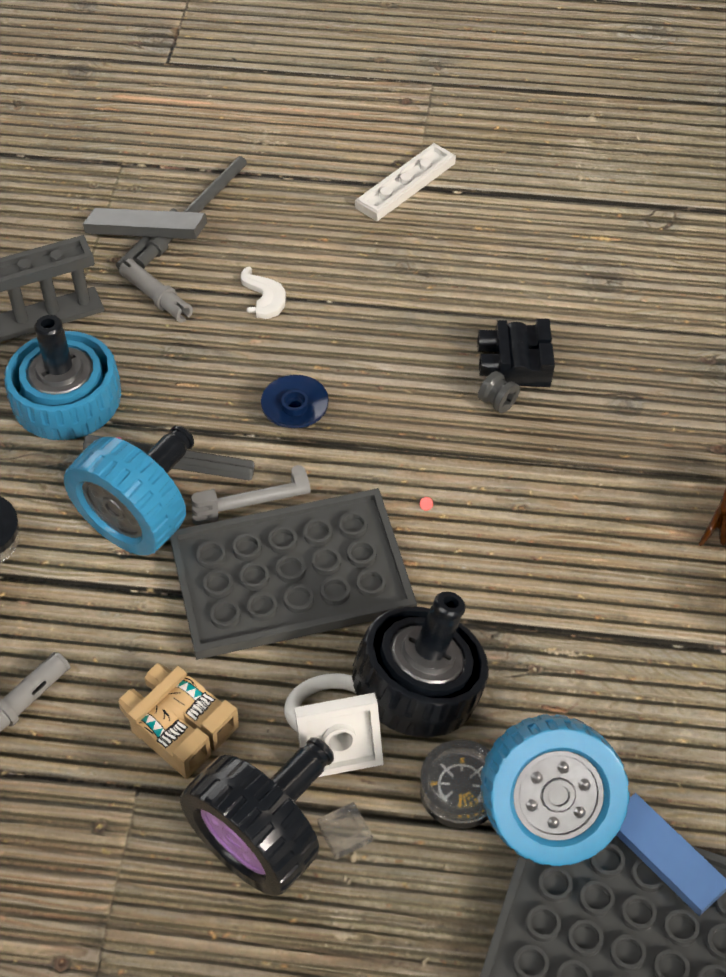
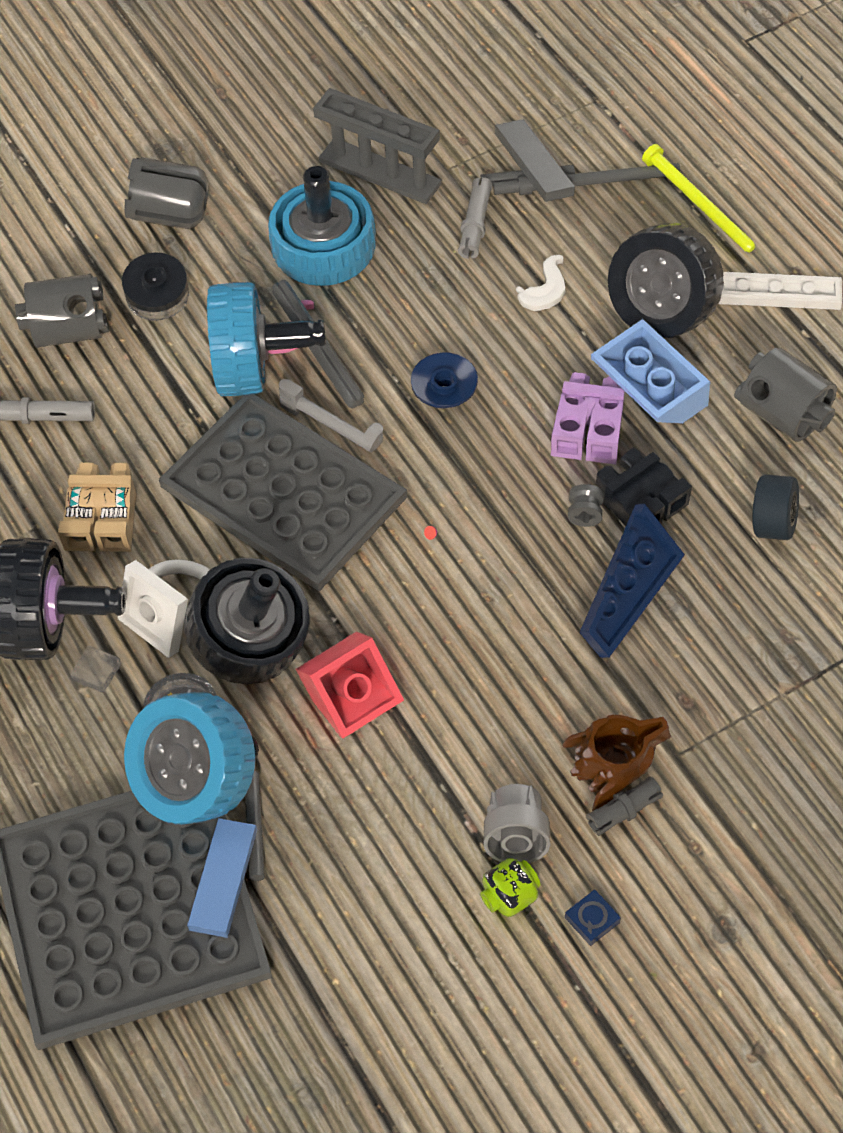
camera: 55 degrees right, 5 degrees up
(283, 165) = (655, 157): none -> neon yellow bar
(361, 213) = (666, 279): none -> black wheel
(422, 341) = (589, 406): none -> lavender hips
(426, 274) = (654, 374): none -> light blue slope
(528, 226) = (787, 394): none -> dark grey cylinder
(532, 642) = (350, 683): none -> coral slope
(598, 408) = (633, 578): none -> dark blue wing
(607, 289) = (775, 507): none -> black wheel

